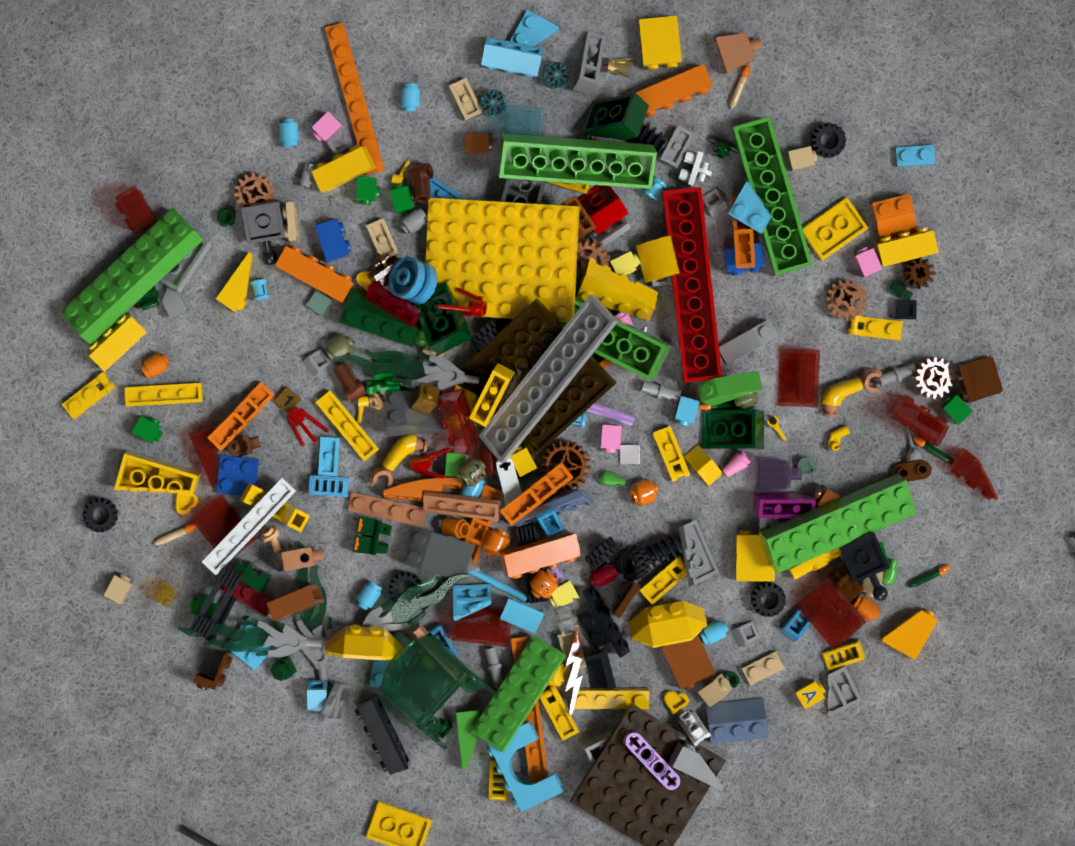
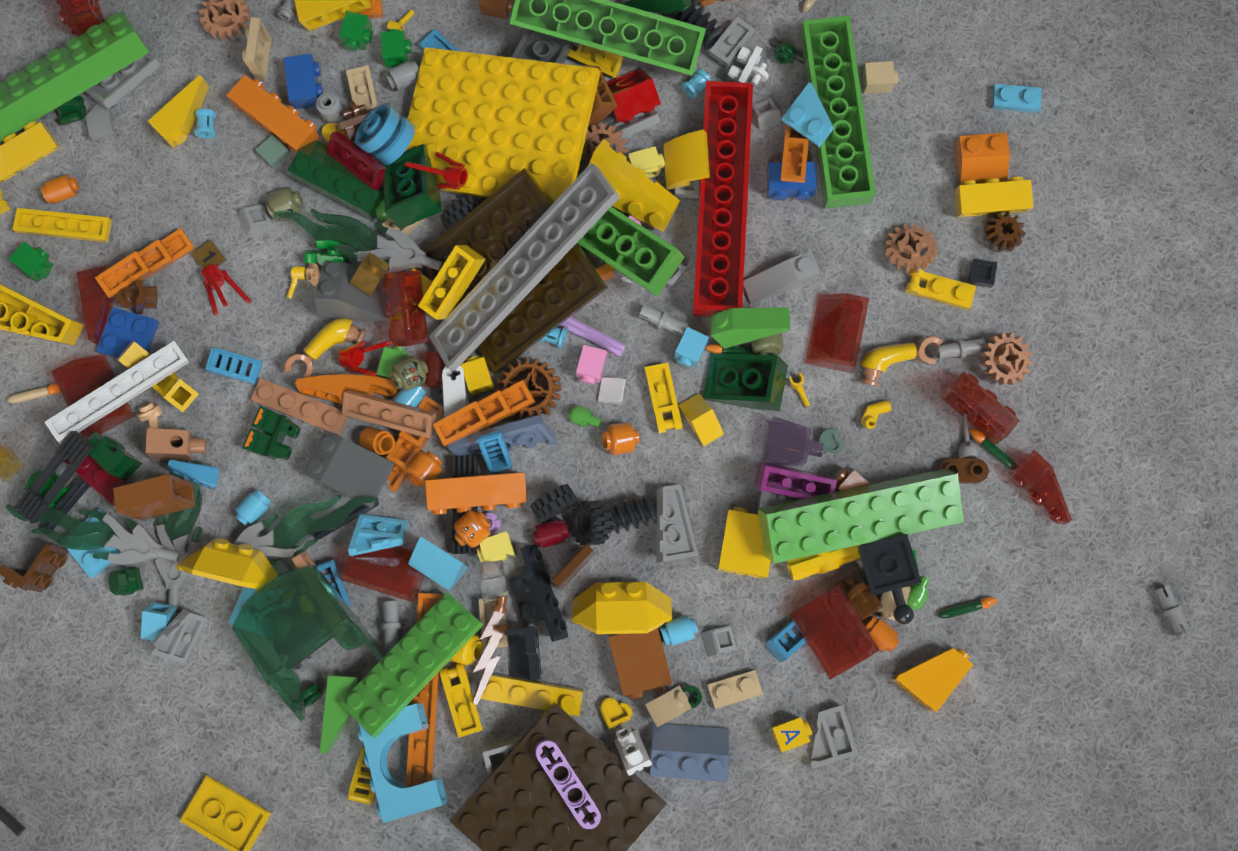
camera: 15 degrees right, 10 degrees down
(185, 502) = (57, 355): yellow tile -> none
(231, 217) = (184, 32): dark green plate -> none
(262, 224) = (222, 48): plate -> none
(328, 456) = (242, 330): medium azure plate -> none
(328, 578) = (200, 474): none -> dark azure slope
(347, 425) = (273, 298): yellow plate -> none
(351, 385) = (288, 251): copper piece -> none
(365, 265) = (330, 107): none -> light grey brick
(383, 735) = (230, 686): black slope -> none
(398, 579) = (295, 494): black tyre -> none
(420, 177) = (420, 29): copper piece -> none
(500, 585) = (417, 523): medium azure bar -> none
(664, 581) = (626, 554): yellow plate -> none
(690, 762) = (619, 797): light grey slope -> none
(736, 463) = (743, 423): bright pink cone -> none
(768, 611) = (769, 593): black tyre -> none
(834, 229) = (907, 166): yellow tile -> none
(838, 134) = (921, 51): black tyre -> none
(861, 655) = (844, 700): yellow slope -> none
(867, 262) = (942, 208): bright pink brick -> none
(898, 289) = (976, 248): clear green cylinder -> none
(956, 409) = (1030, 402): green brick -> none
(978, 379) = (1062, 371): reddish brown bracket -> none

